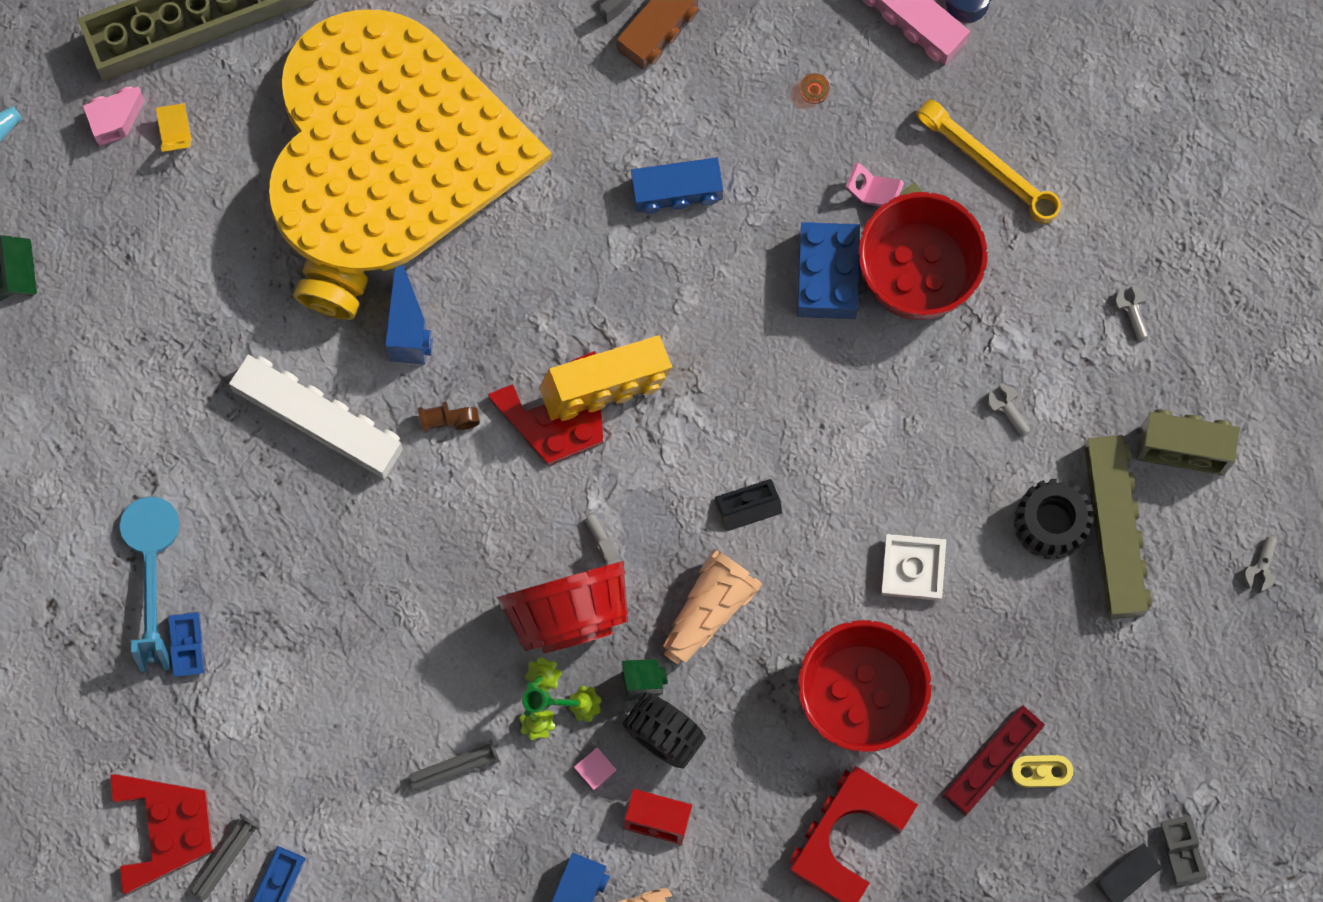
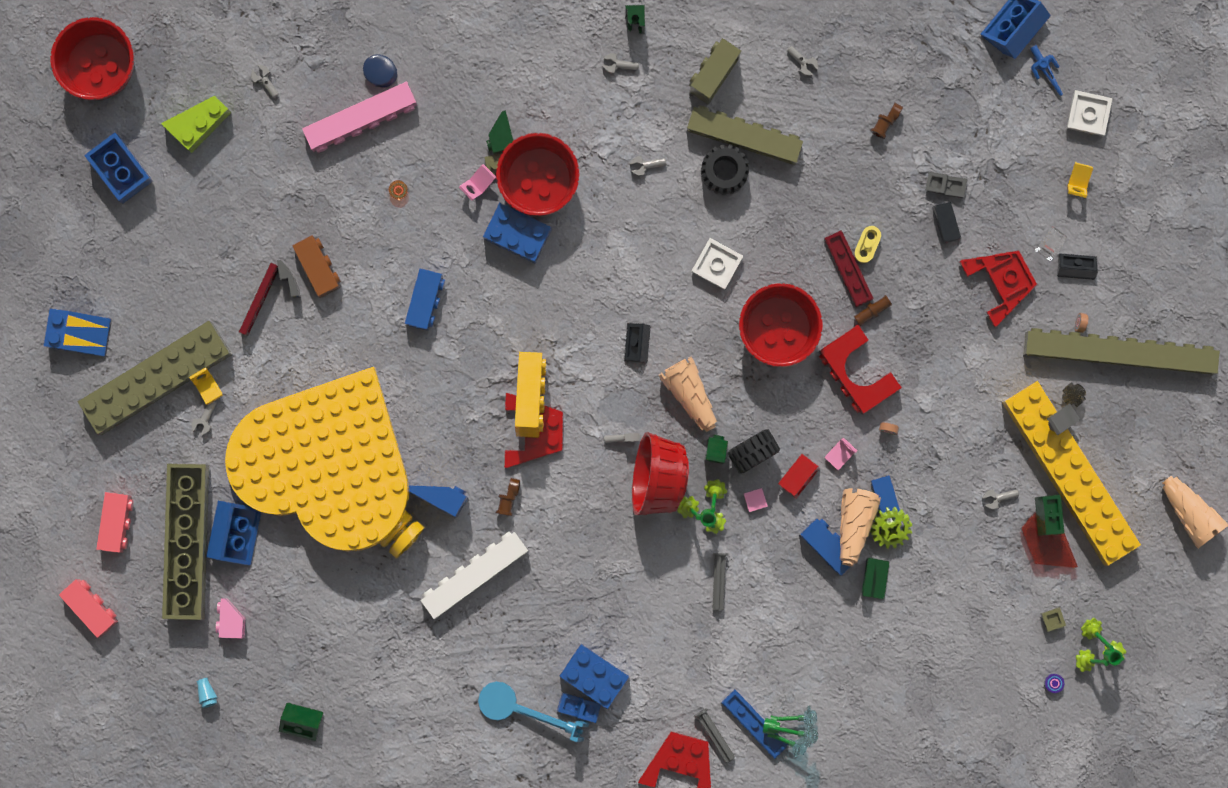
camera: 65 degrees left, 10 degrees up
(174, 127) = (255, 587): yellow bracket -> none
(238, 69) = (233, 533): none -> blue slope
(240, 644) = (594, 676): none -> blue brick
(716, 863) = (840, 453): none -> bright pink bracket
(938, 119) = (453, 124): yellow piece -> none
(948, 821) = (873, 310): none -> reddish brown pin
(960, 186) = (500, 134): none -> dark green slope
(1212, 302) = (635, 15): none -> dark green hinge
(1232, 719) = (885, 121): none -> reddish brown connector

